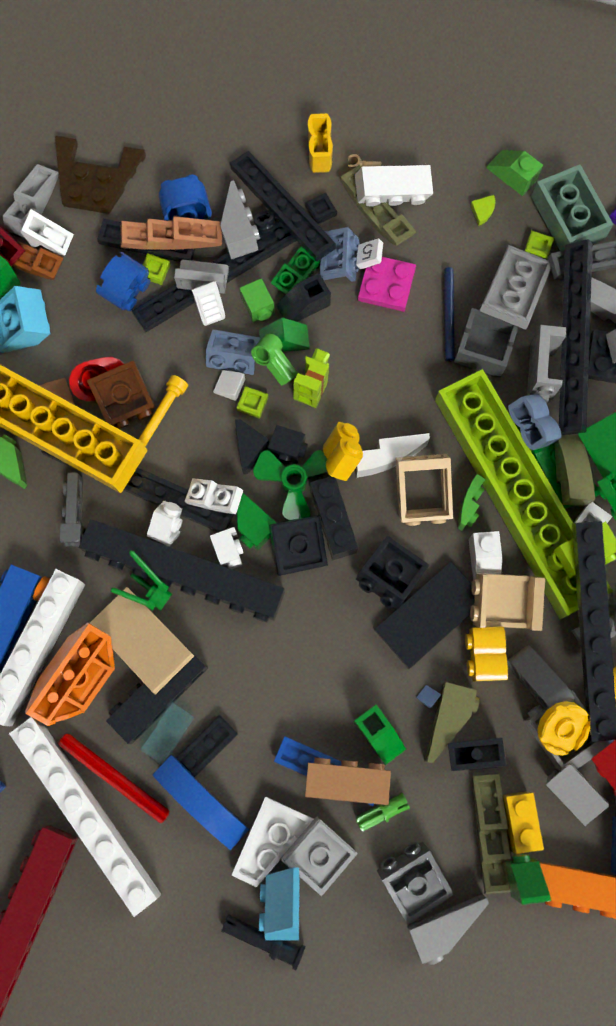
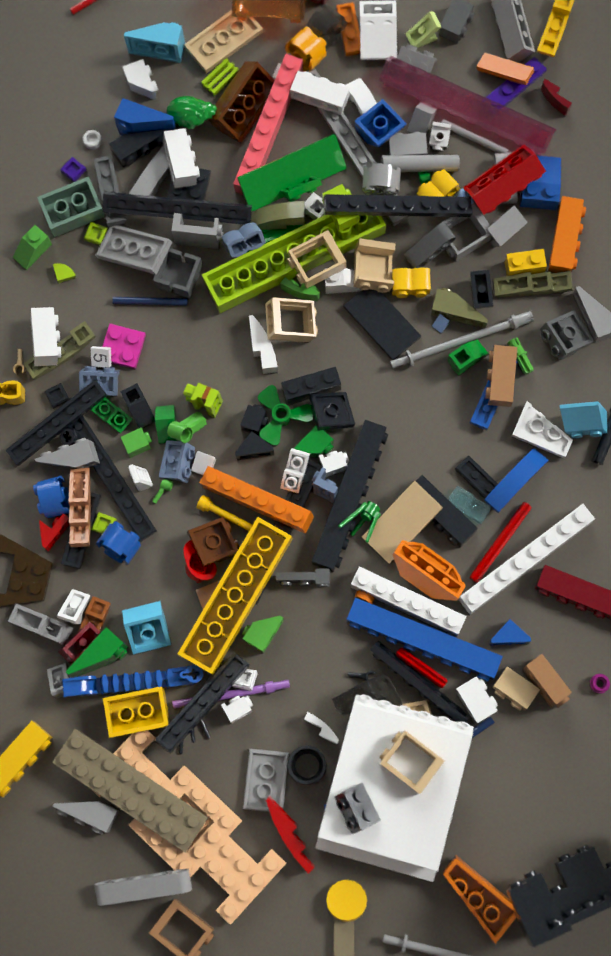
camera: 85 degrees left, 0 degrees up
(142, 204) = (49, 535): none -> red slope
(165, 523) = (315, 504): white brick -> none
(174, 447) = (256, 499): none -> orange brick
(186, 536) = (324, 488): none -> sand blue bracket
(196, 274) = (114, 484): light grey panel -> none
(201, 337) = (165, 485): none -> bright green hand
(252, 402) = (217, 447): lime tile -> none
(319, 856) = (549, 396): light grey plate -> none
(342, 451) = (262, 376): yellow brick -> none
(391, 573) = (352, 345): black plate -> none
(433, 802) = (512, 322): none -> light grey bar
(527, 505) = (322, 239): none -> tan window
(527, 880) = (564, 258): green slope -> none
(563, 728) = (463, 230): yellow tile -> none

